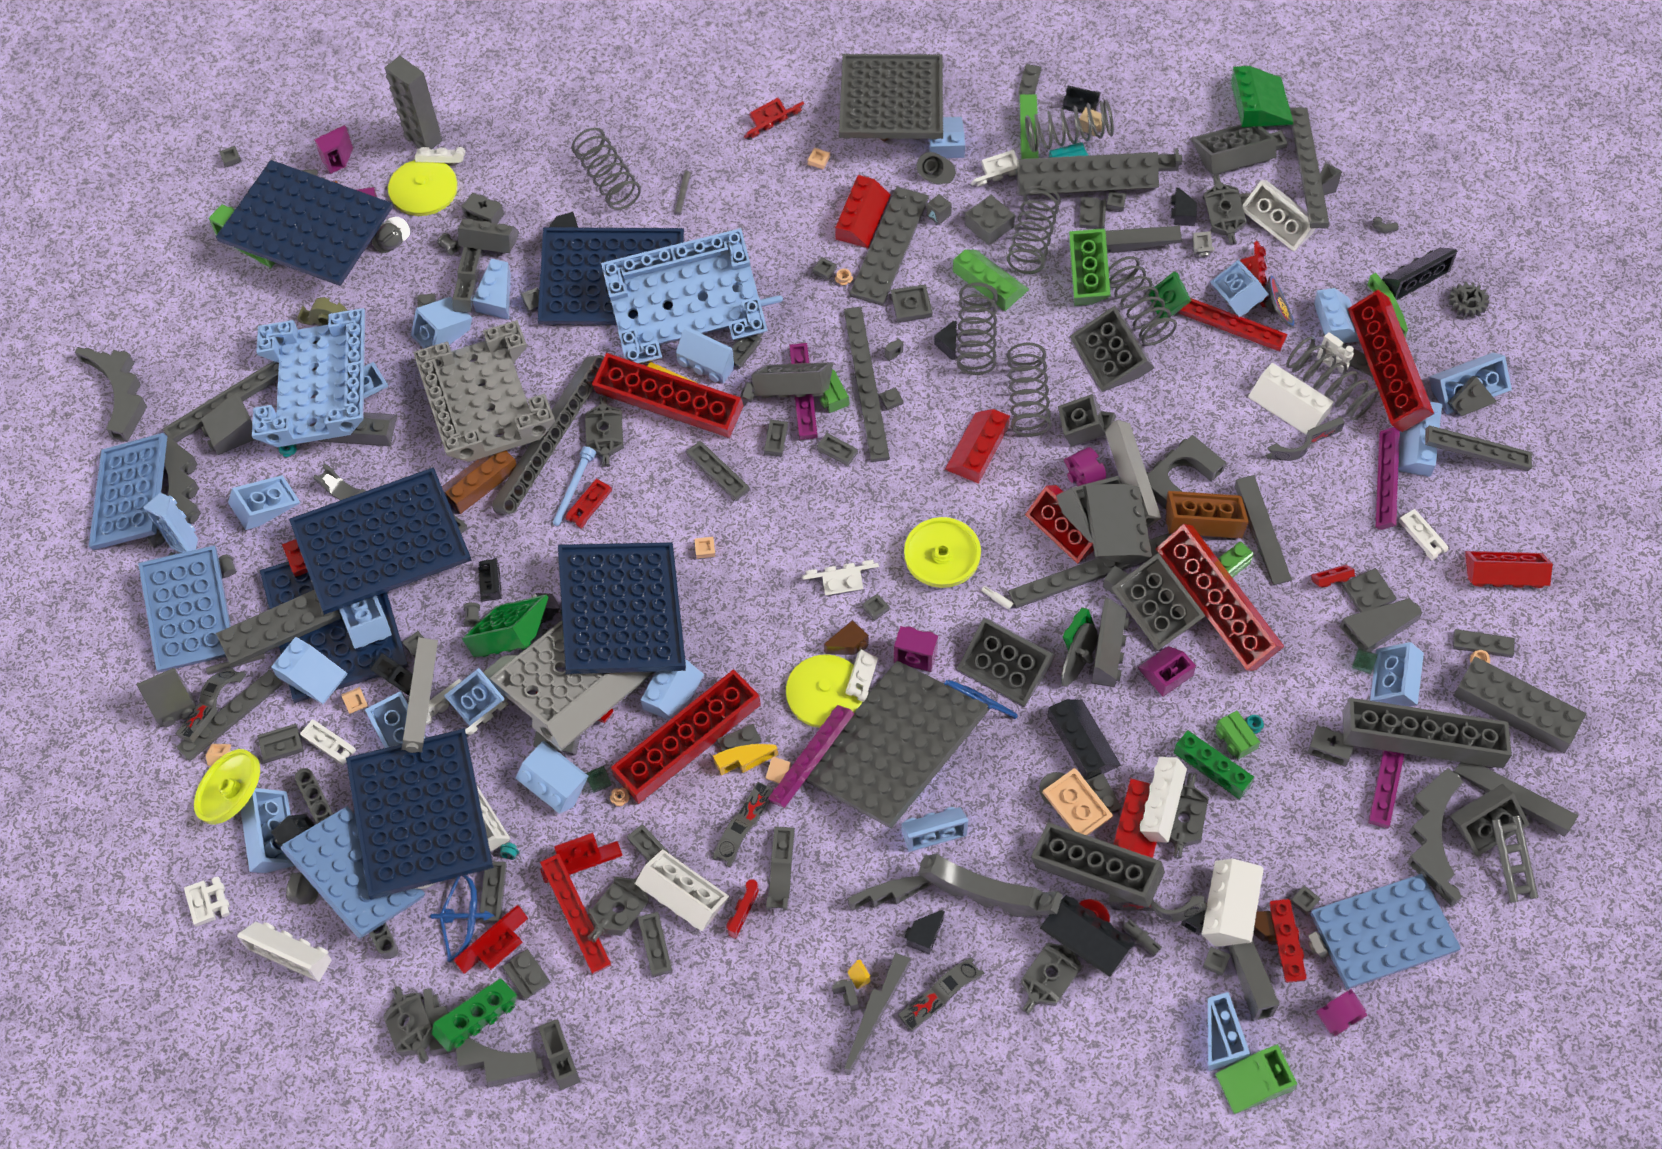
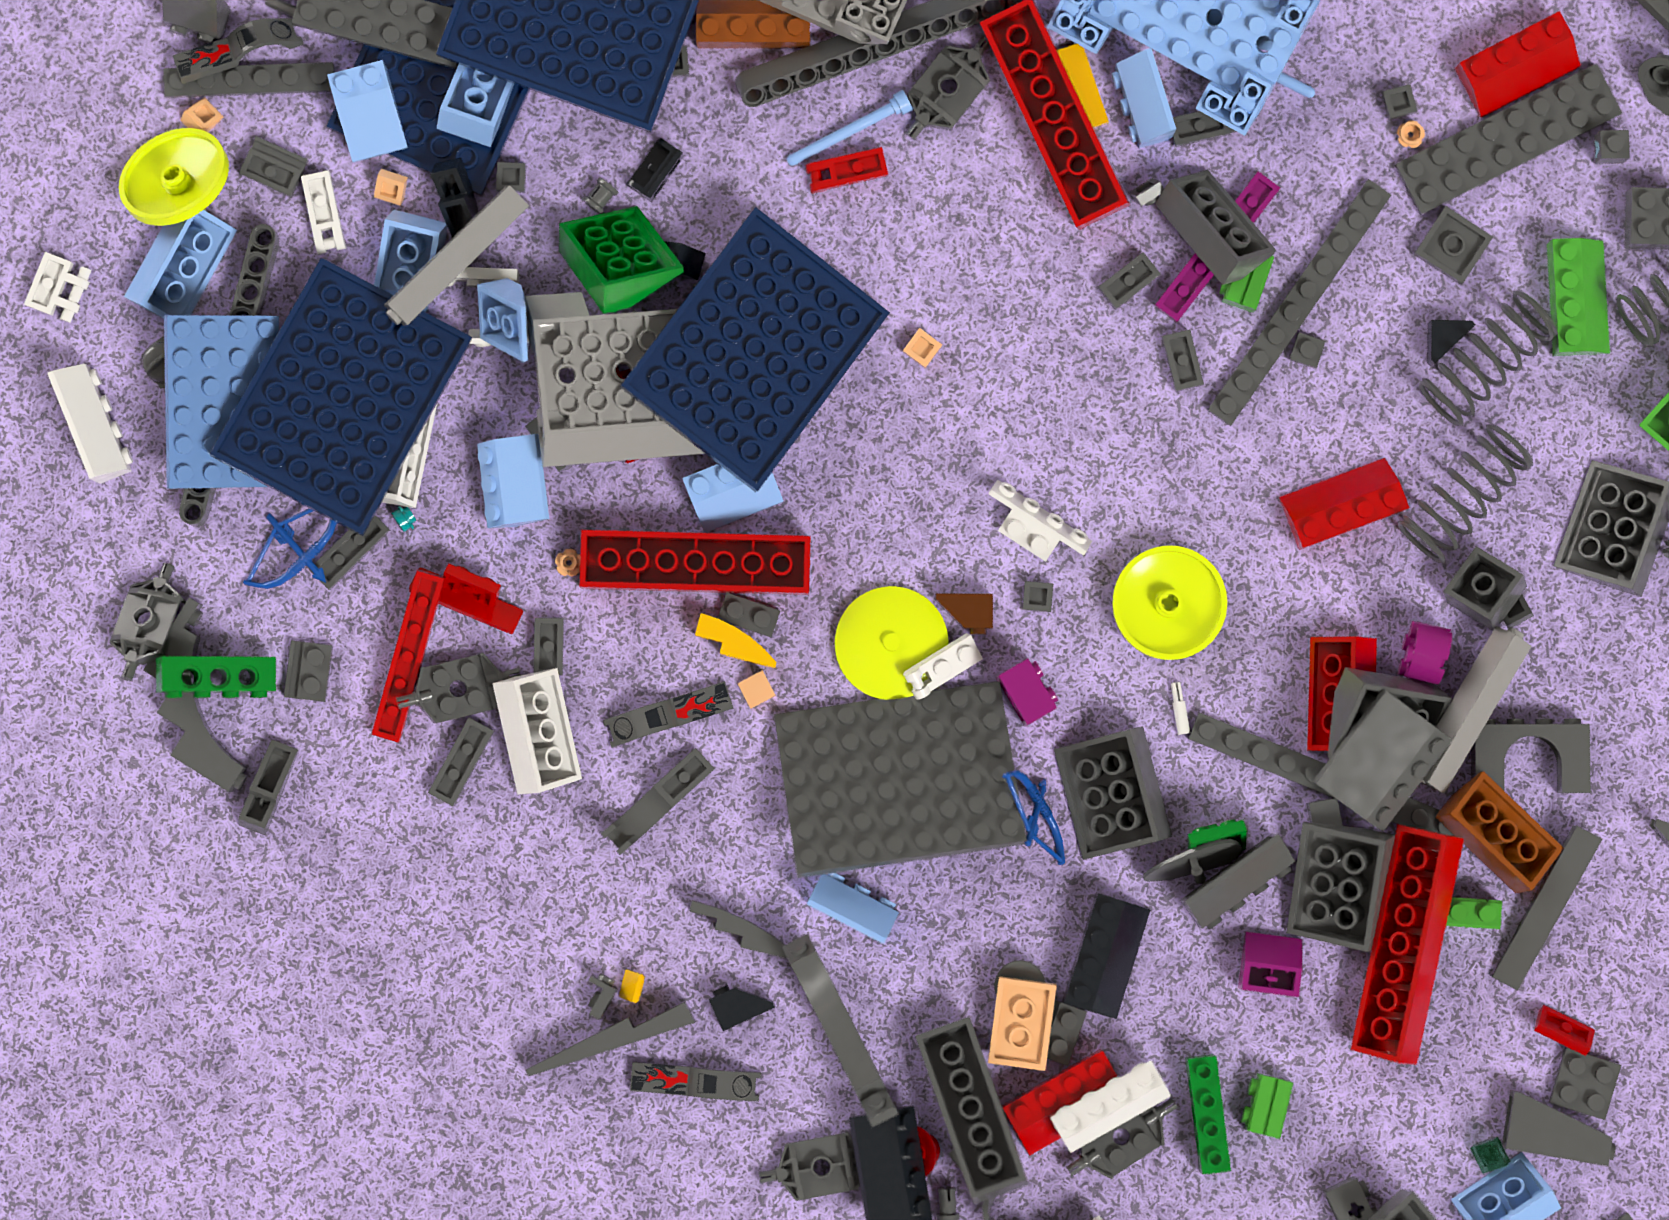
camera: 40 degrees right, 25 degrees up
(291, 827) = (204, 292): black slope -> none
(494, 943) = (303, 611): red bracket -> none
(598, 779) = (564, 522): clear green plate -> none
(718, 470) = (1025, 262): dark grey plate -> none
(743, 908) = (581, 807): red plate -> none
(811, 756) = (802, 709): magenta plate -> none
(893, 349) = (1370, 289): dark grey plate -> none
(1257, 720) = (1307, 1105): teal plate -> none

